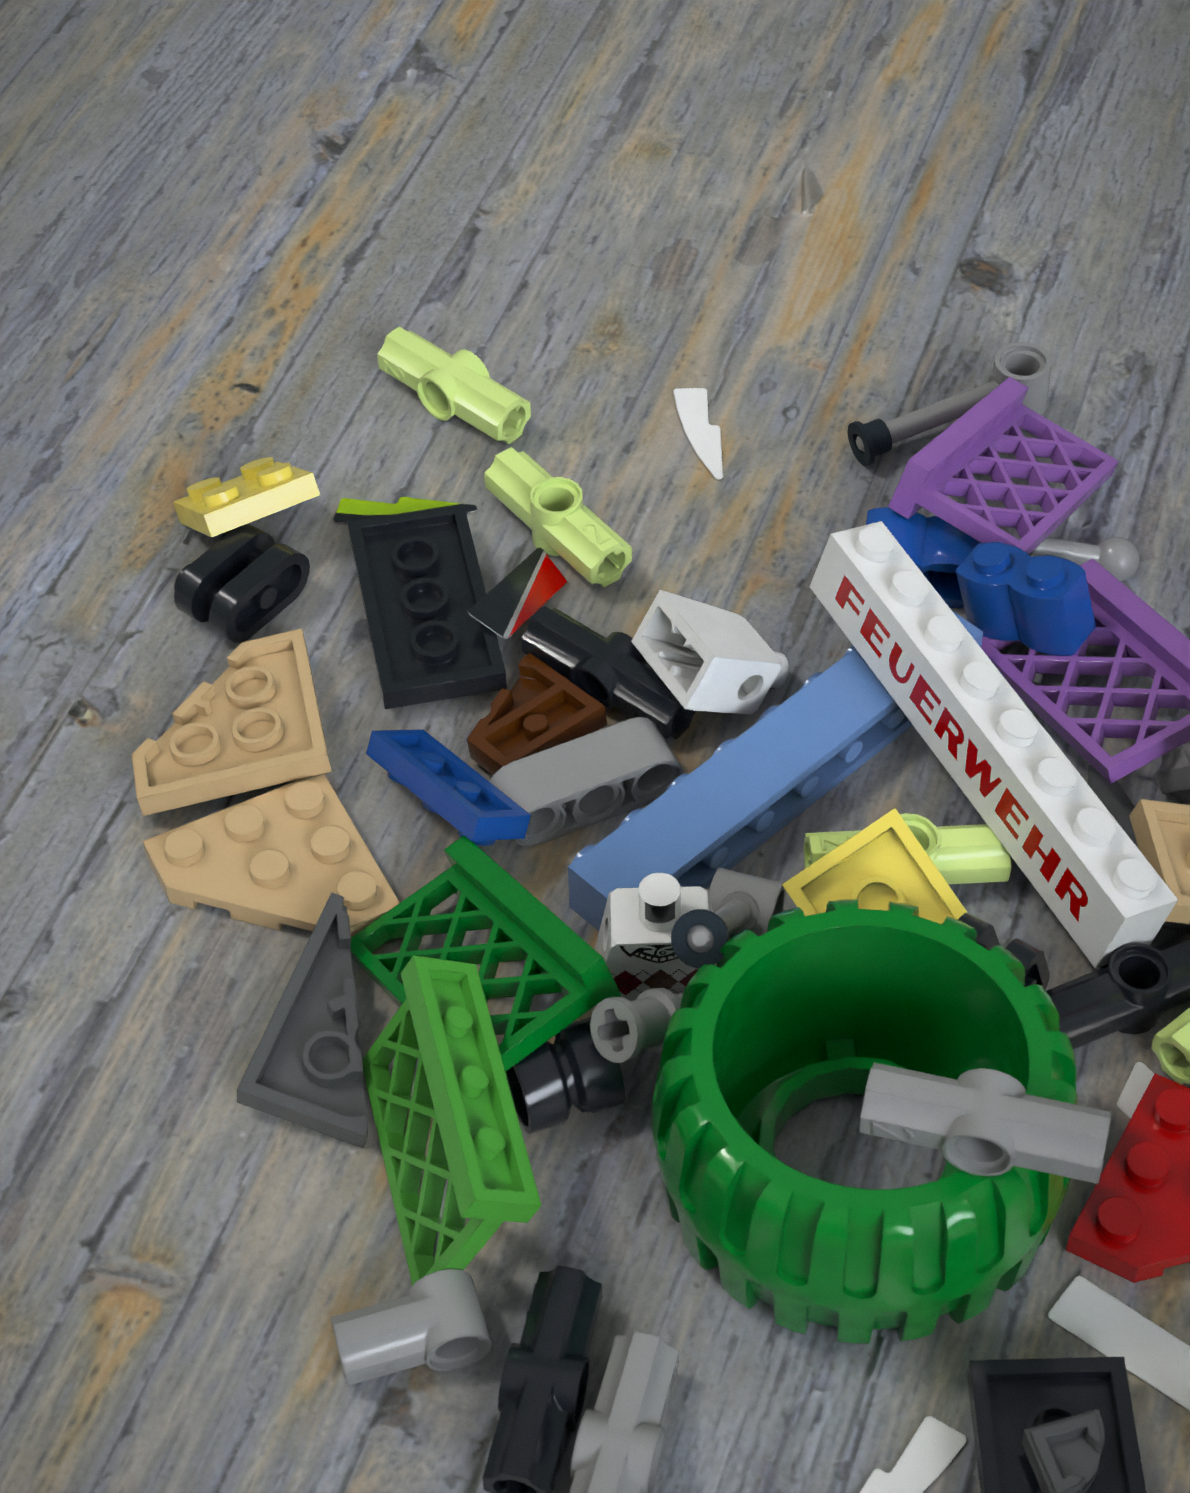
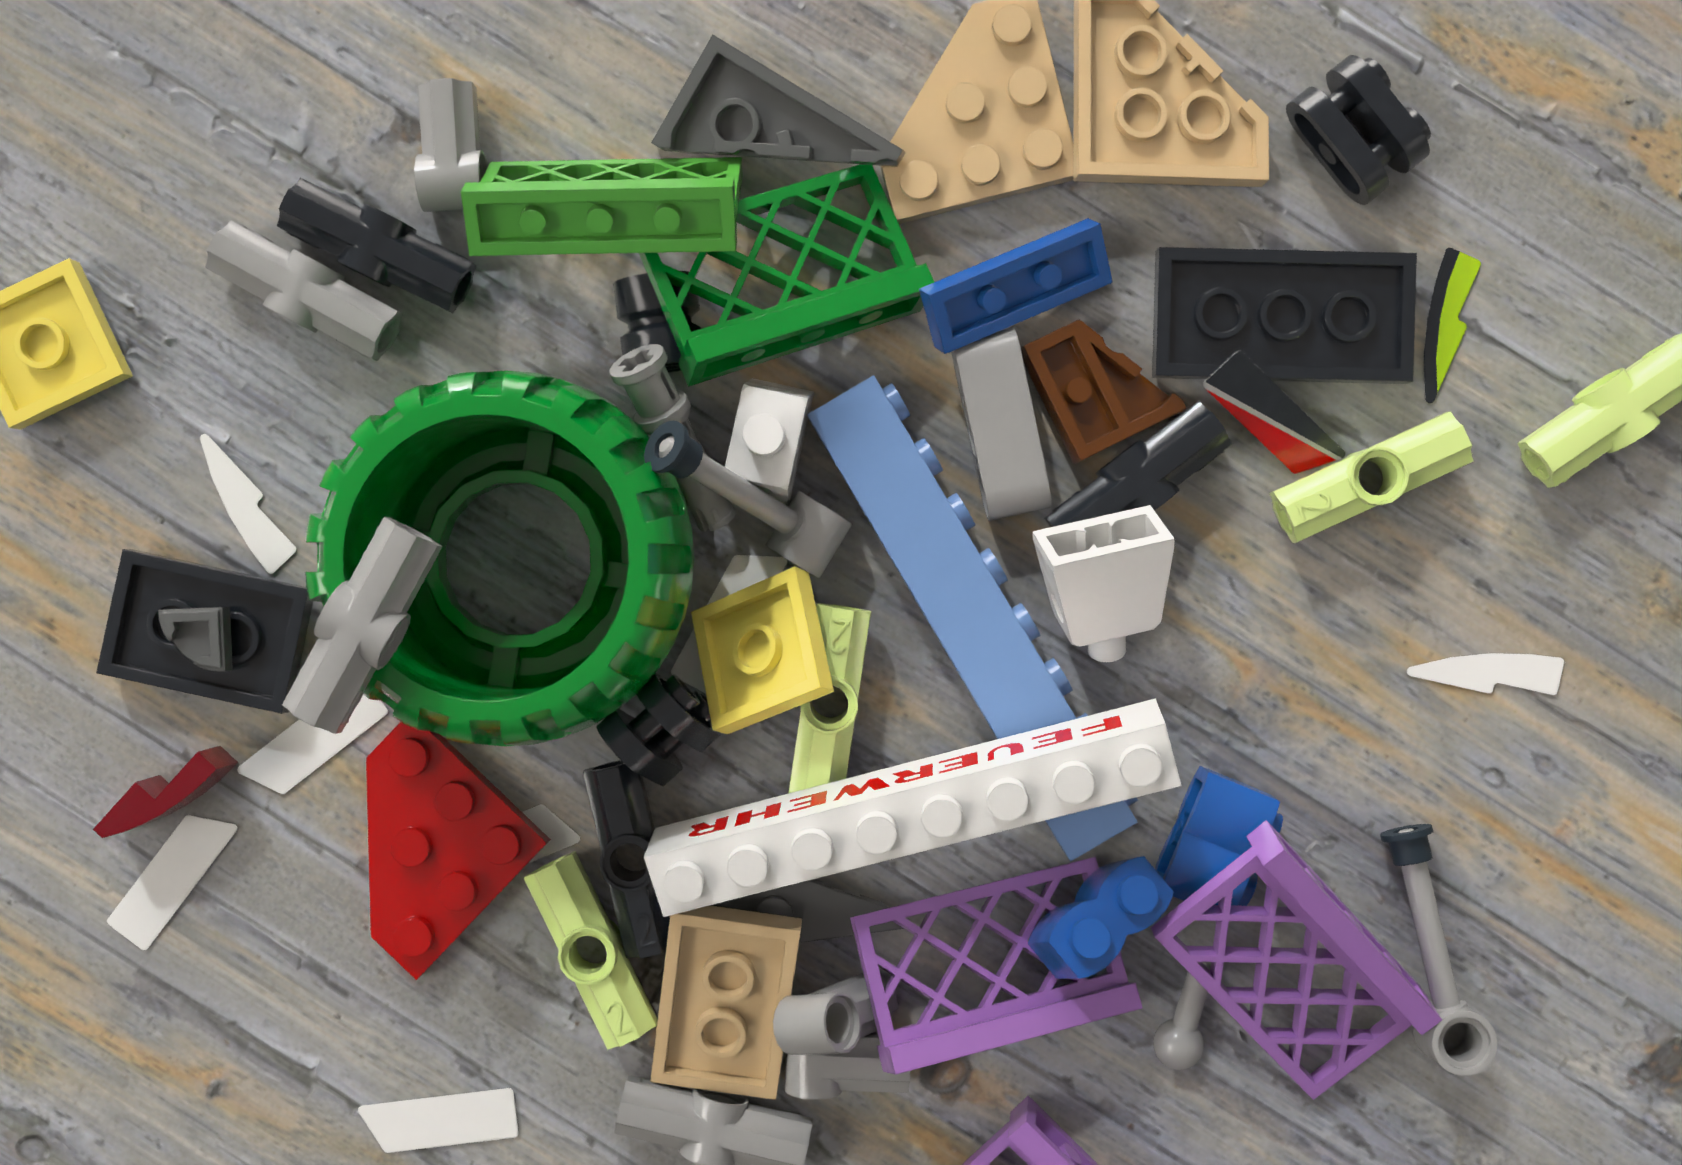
camera: 105 degrees right, 40 degrees up
(258, 492) = (1475, 147): light yellow plate -> none

